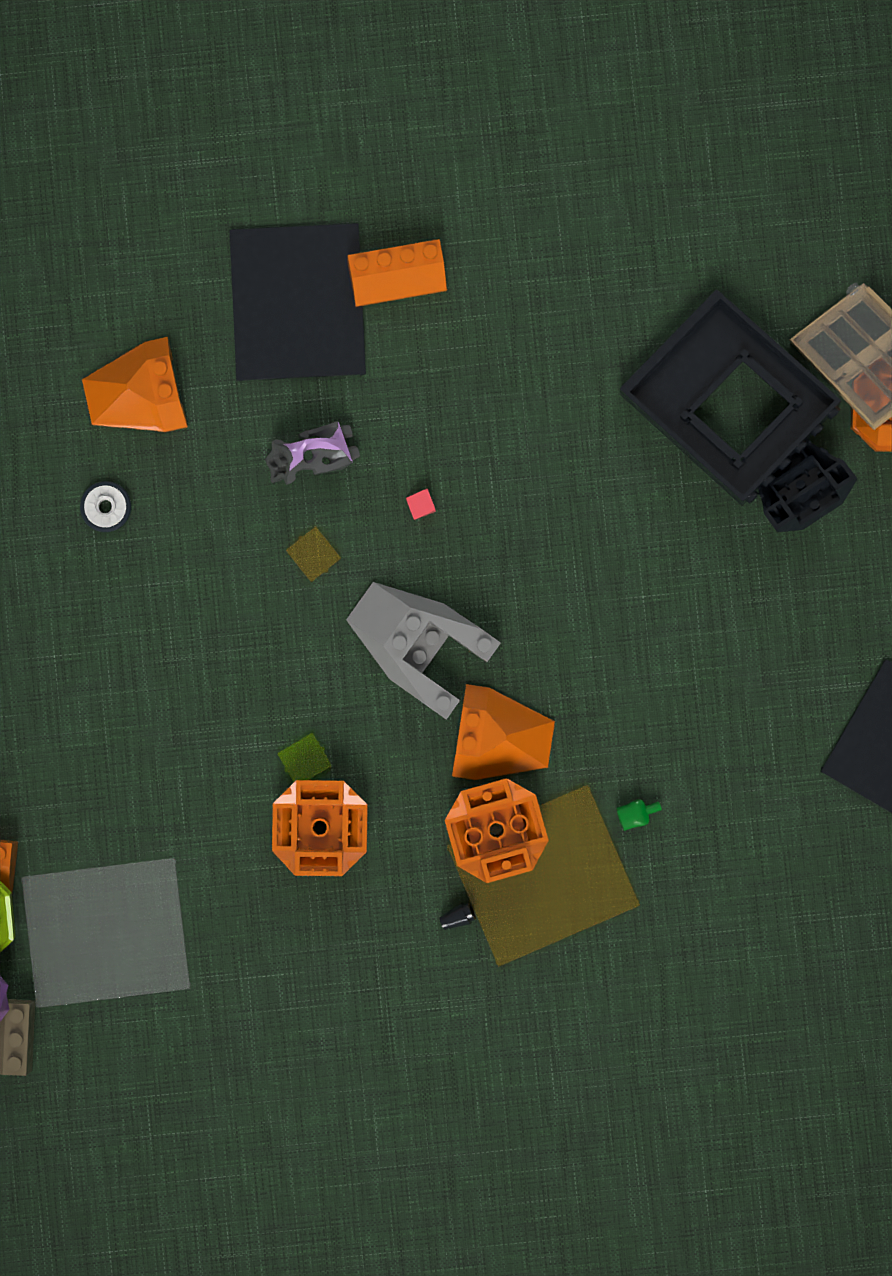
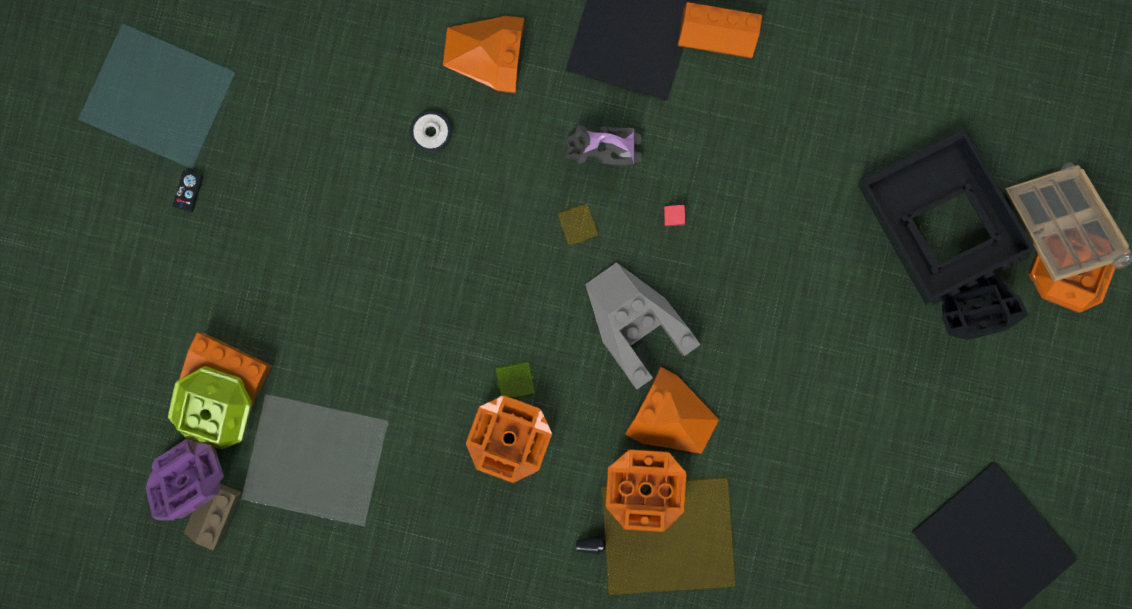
camera: 20 degrees right, 0 degrees up
(636, 813) = (757, 514): green piece -> none

